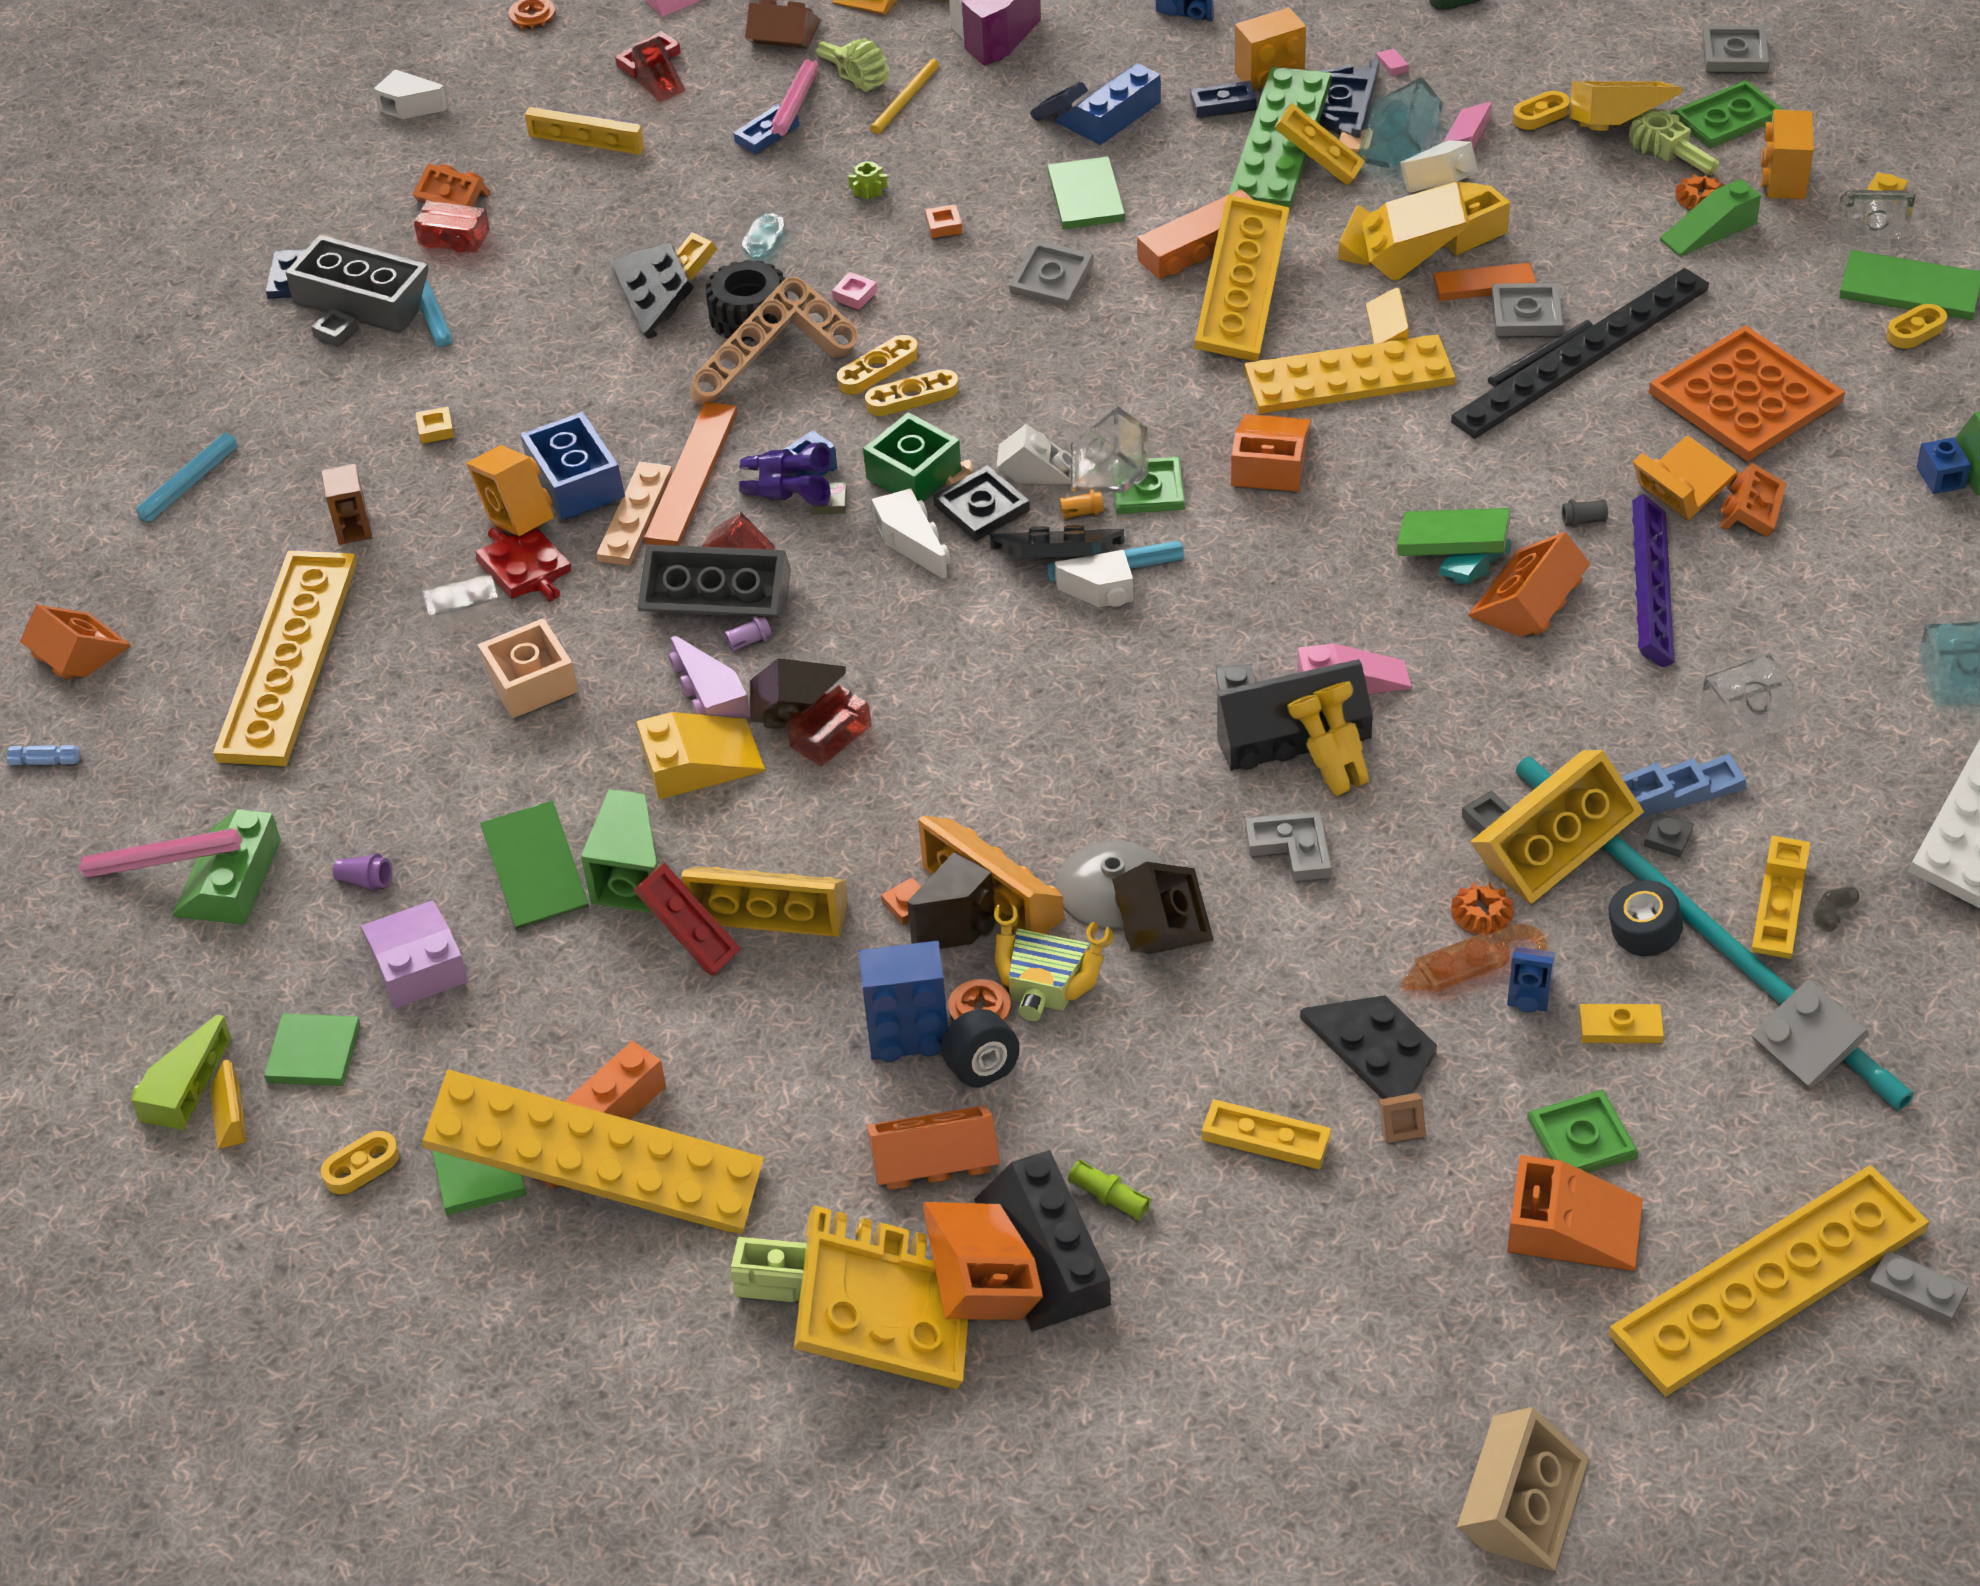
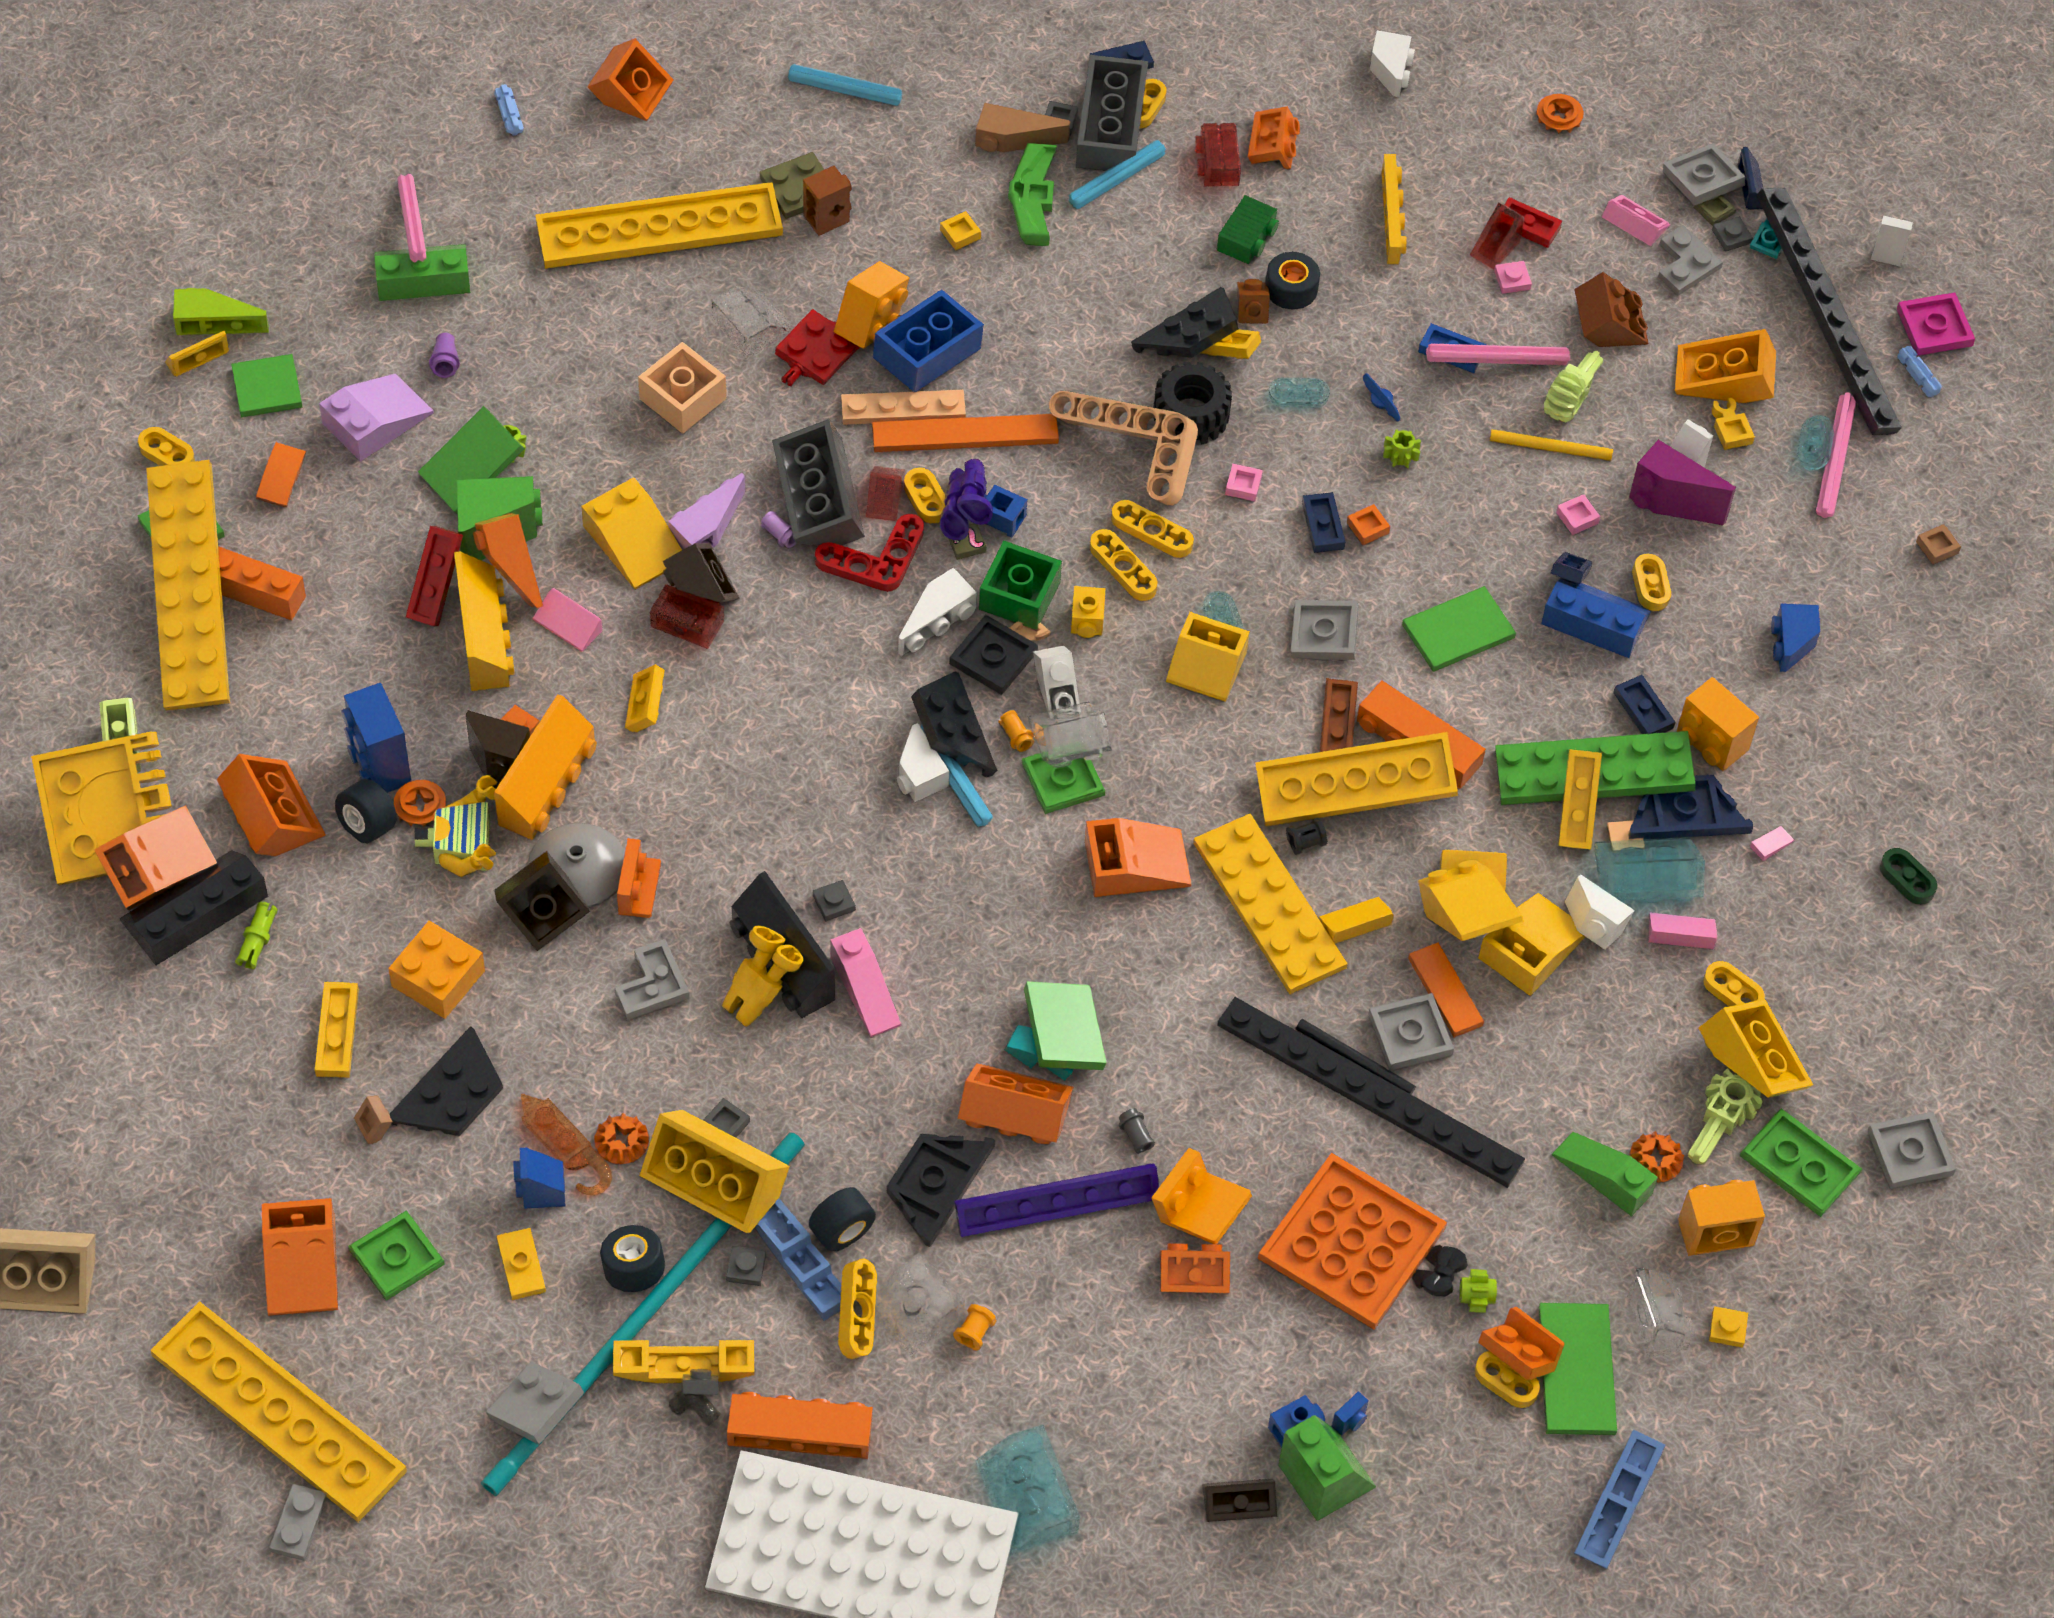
camera: 65 degrees right, 10 degrees up
(296, 531) = (788, 182): none -> olive plate
(330, 360) = (1011, 129): none -> medium nougat slope
(422, 361) = (1032, 193): none -> bright green plate
(459, 1051) = (280, 474): none -> orange slope
(554, 226) = (1247, 230): none -> green brick
(632, 210) = (1292, 280): none -> black wheel
(637, 238) = (1253, 301): none -> dark orange bracket
(700, 837) = (507, 550): none -> orange slope
(702, 79) = (1512, 277): none -> bright pink plate
(763, 512) = (928, 497): none -> yellow plate
(785, 829) = (568, 620): none -> bright pink slope
(798, 186) = (1381, 397): none -> blue piece
(827, 568) = (875, 565): none -> red beam
(922, 780) = (644, 698): none -> yellow plate
(927, 249) = (1323, 522): none -> dark blue plate
(963, 421) = (1088, 611): none -> yellow brick
(994, 93) = (1578, 514): none -> bright pink plate
(1007, 339) = (1225, 613): none -> clear light blue plate
(1055, 348) = (1208, 656): none -> yellow slope
(1090, 66) = (1651, 585): none -> yellow plate
(1158, 289) = (1338, 714): none -> dark orange tile
(1160, 828) = (637, 881): none -> orange bracket
(1220, 1021) = (436, 969): none -> light orange brick
(1283, 330) = (1306, 836): none -> black bush
(1606, 667) = (933, 1178): none -> black wing
(1644, 734) = (842, 1219): none -> black wheel
(1749, 749) = (856, 1332): none -> yellow beam
(1784, 337) = (1447, 1262): none -> black piece
(1796, 671) = (975, 1327): none -> light orange bush
(1817, 887) = (700, 1382): none -> dark grey plate
(1823, 321) = (1478, 1290): none -> lime gear
(1877, 821) = (799, 1425): none -> orange brick
(1890, 299) = (1523, 1345): none -> orange bracket
(1936, 424) = (1351, 1414): none -> blue plate

